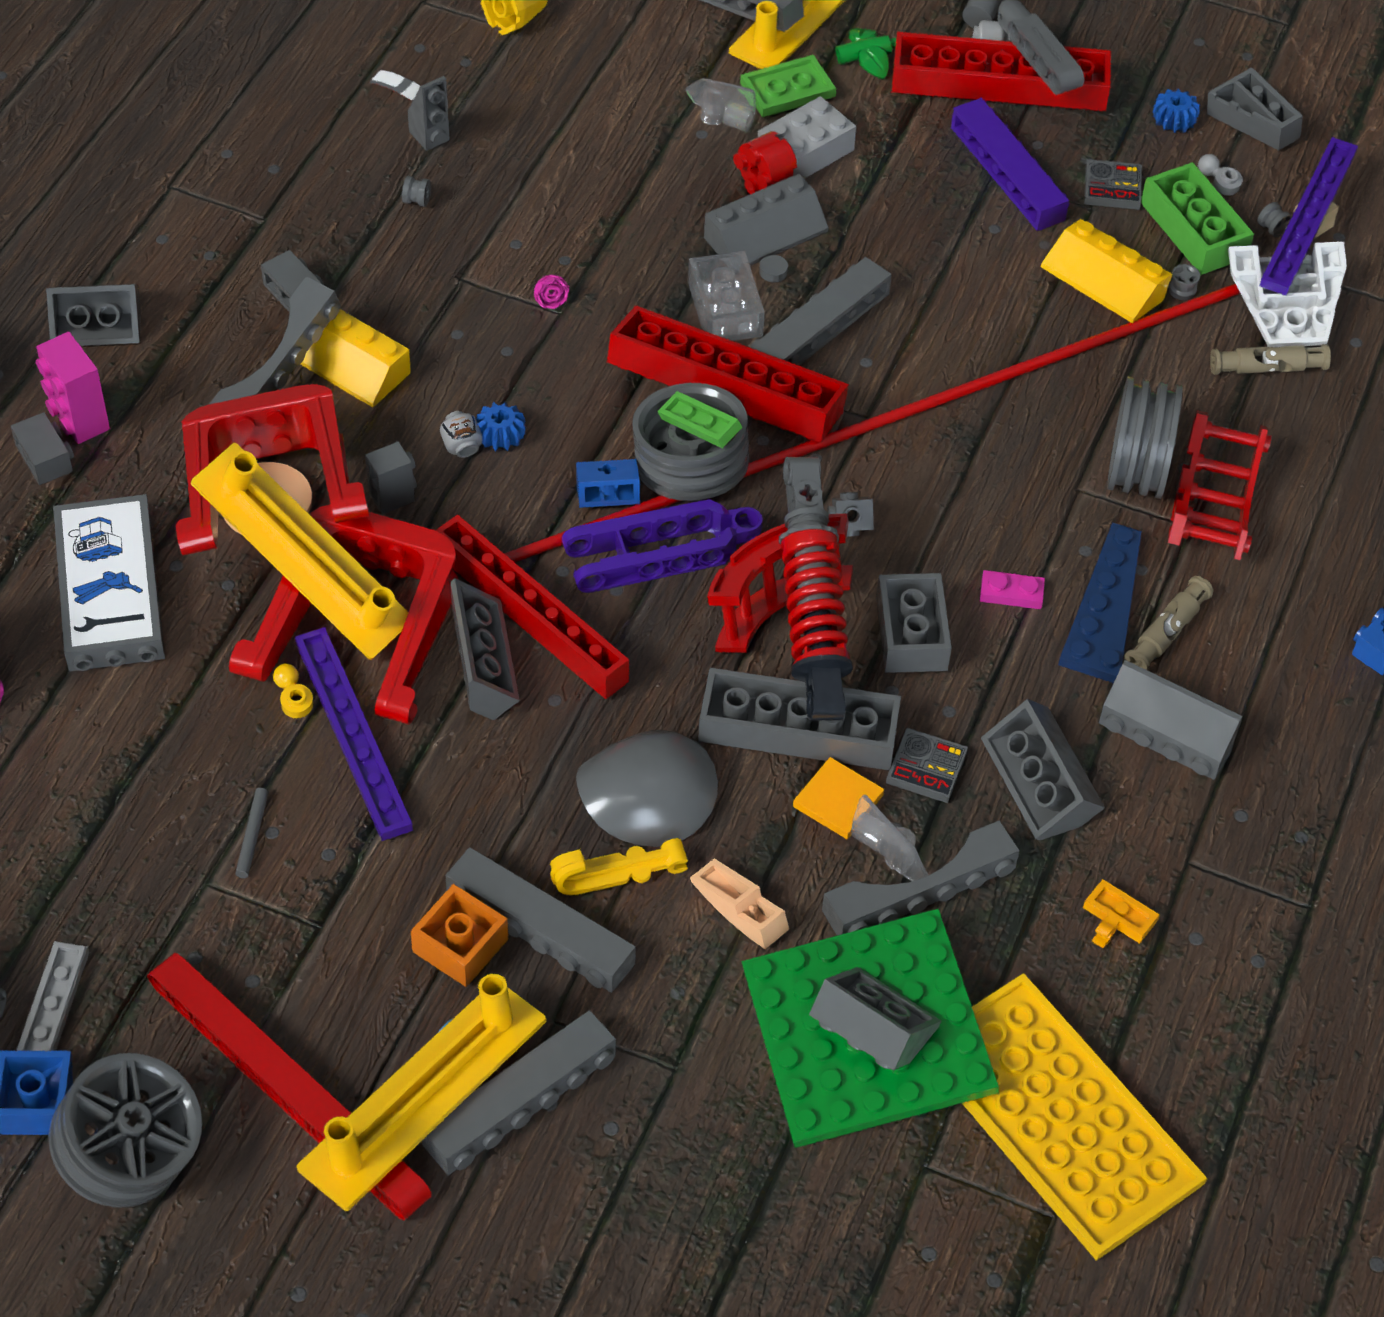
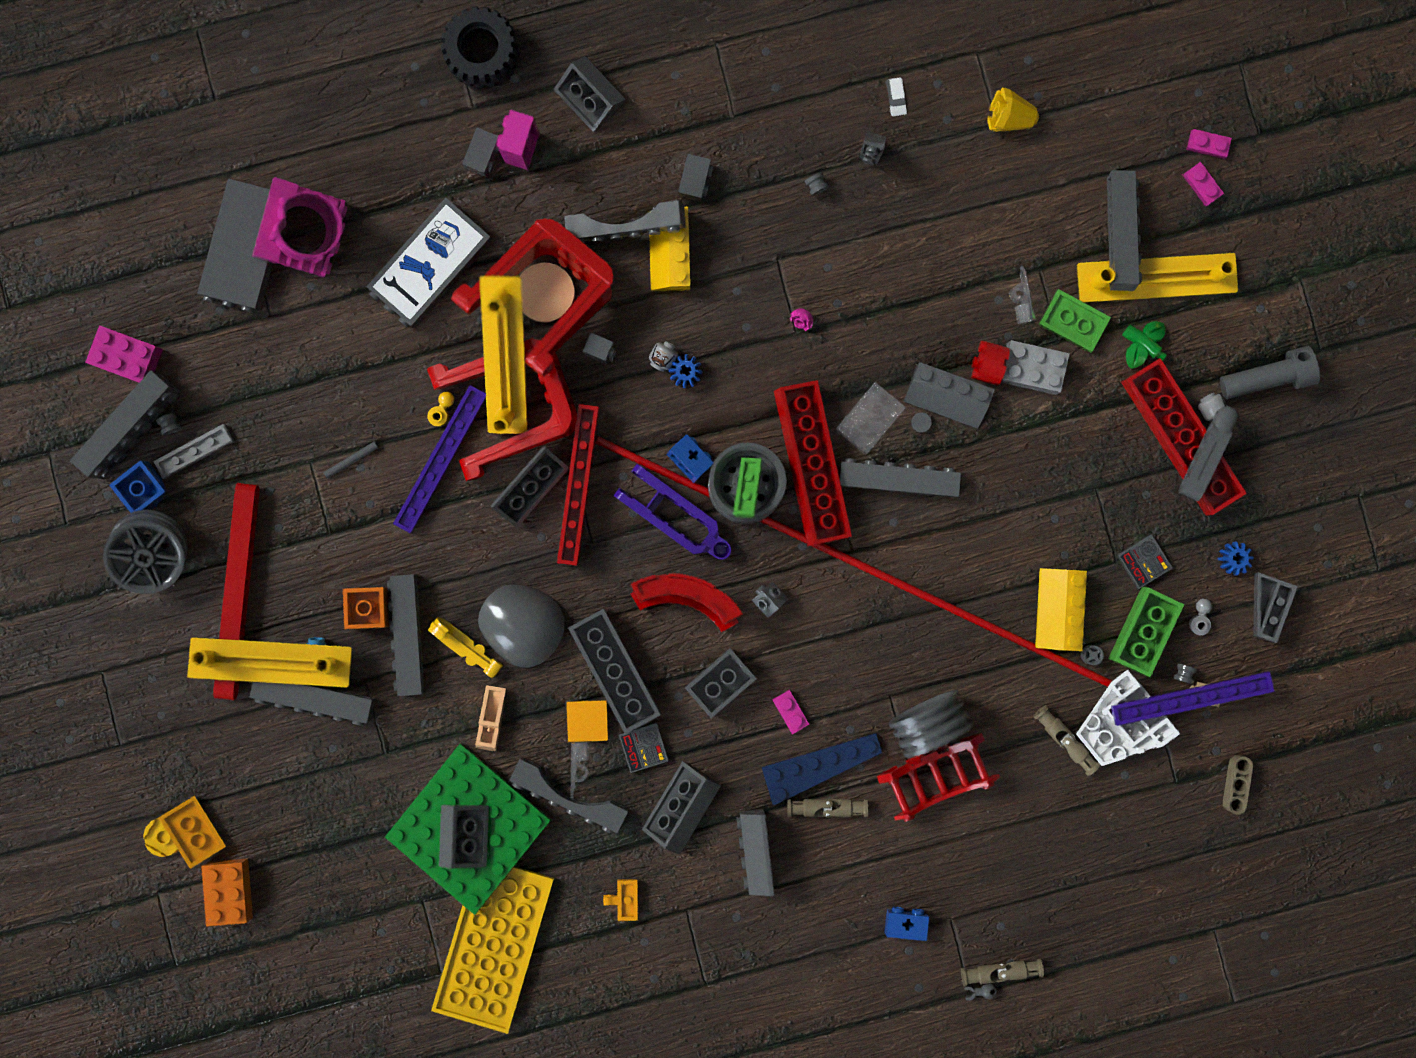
camera: 55 degrees right, 35 degrees up
(814, 592) = (668, 643): piece -> none
(1010, 164) = (1110, 493): dark purple brick -> none

